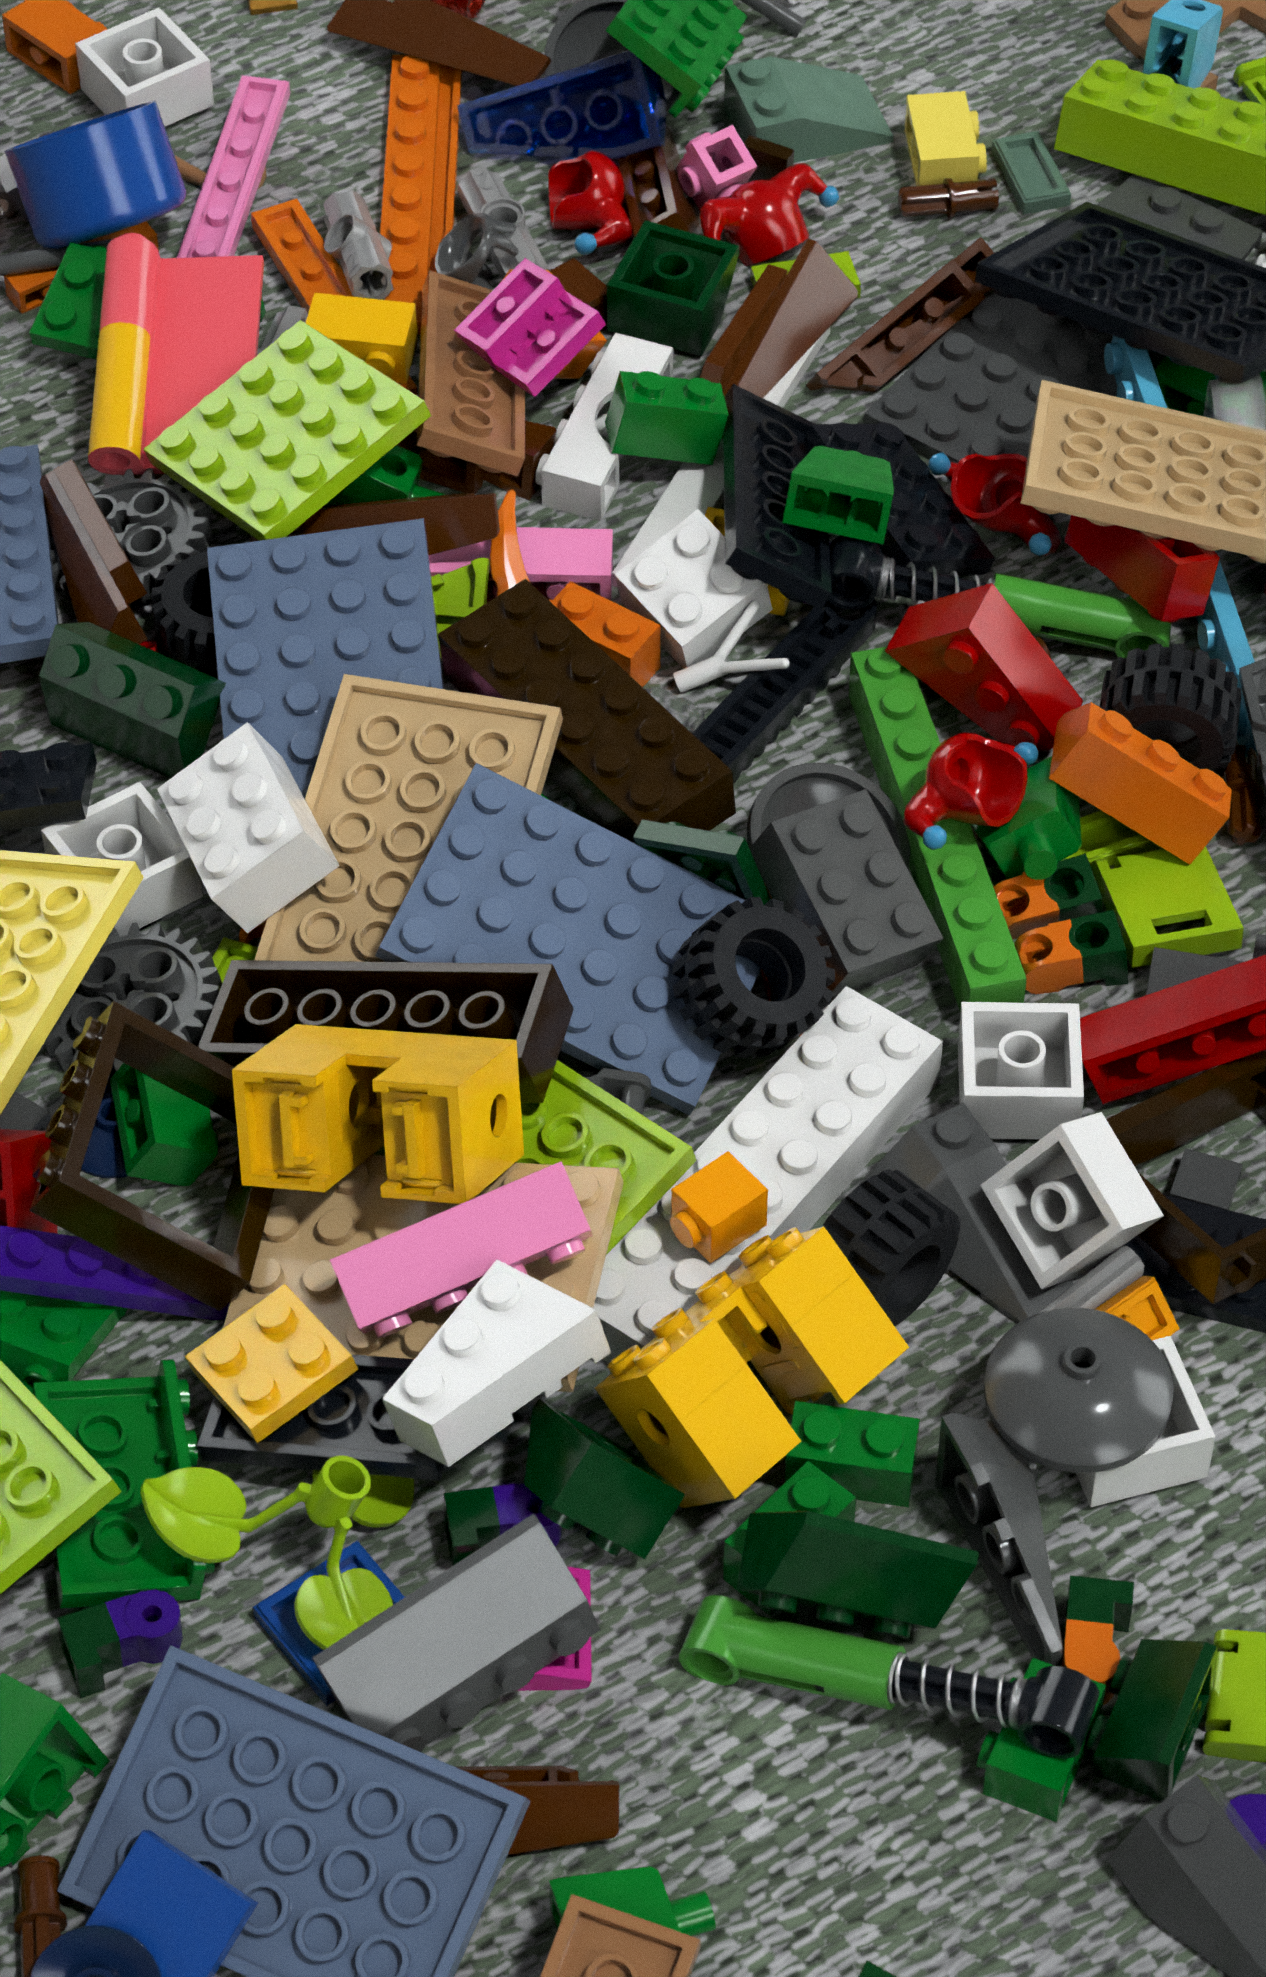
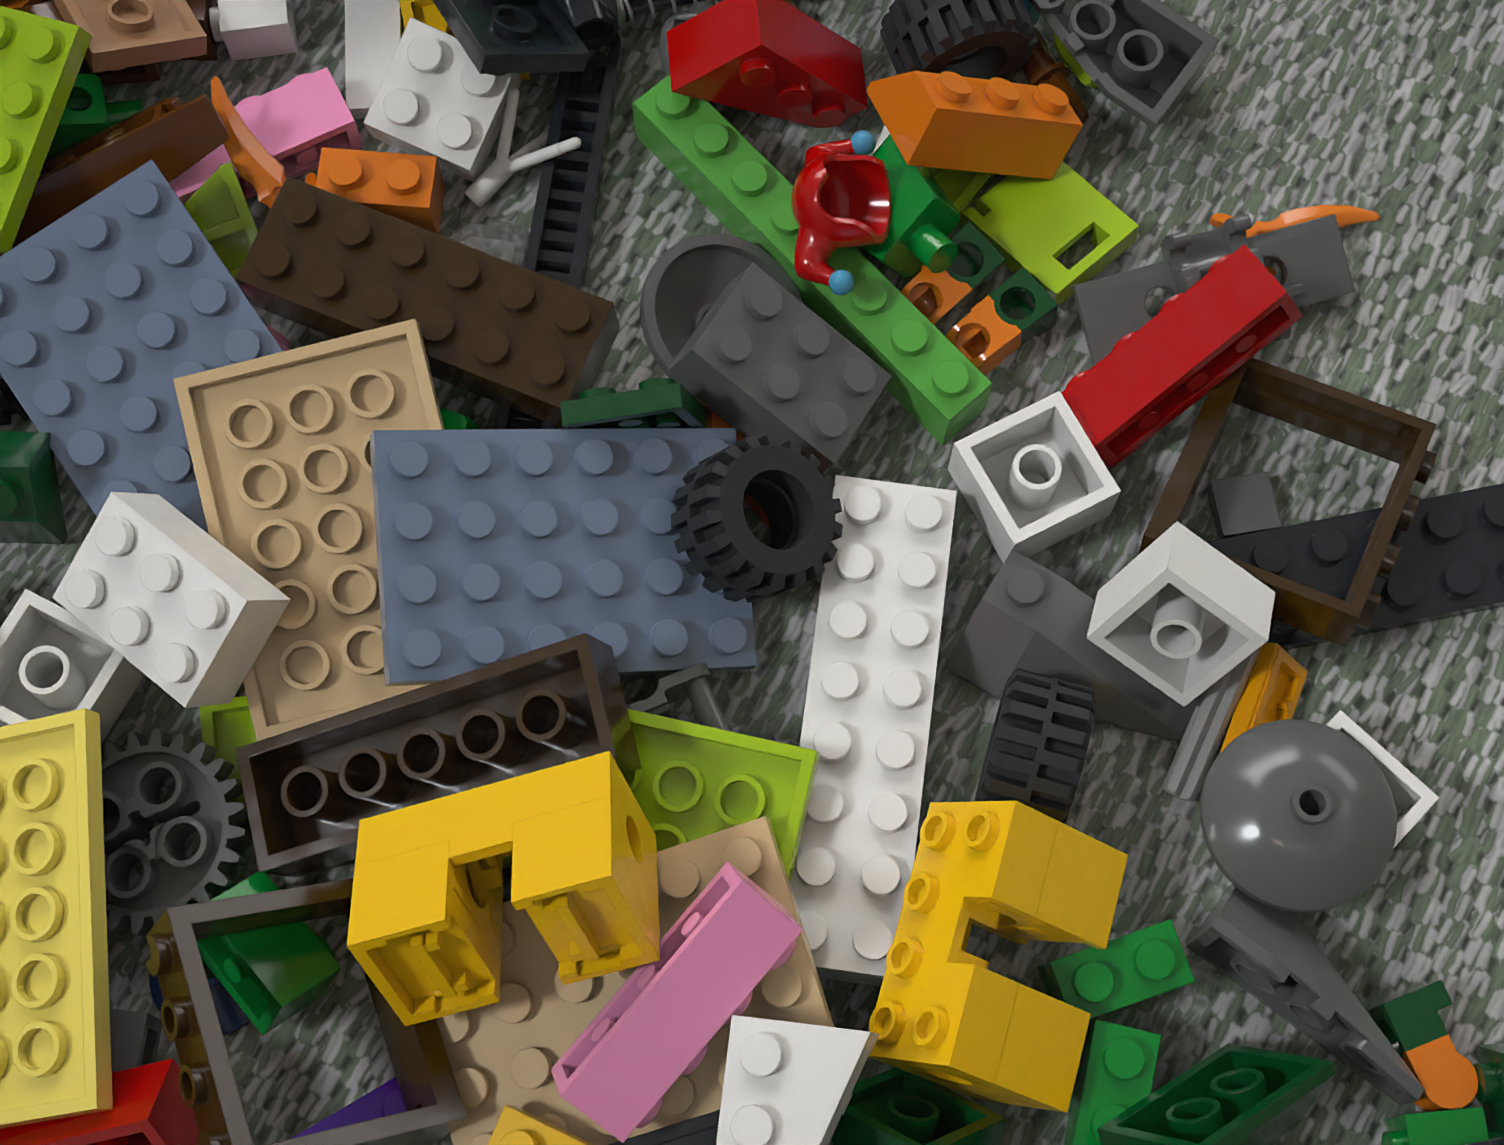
camera: 30 degrees left, 20 degrees up
(718, 1207) = (875, 803): light orange brick -> none

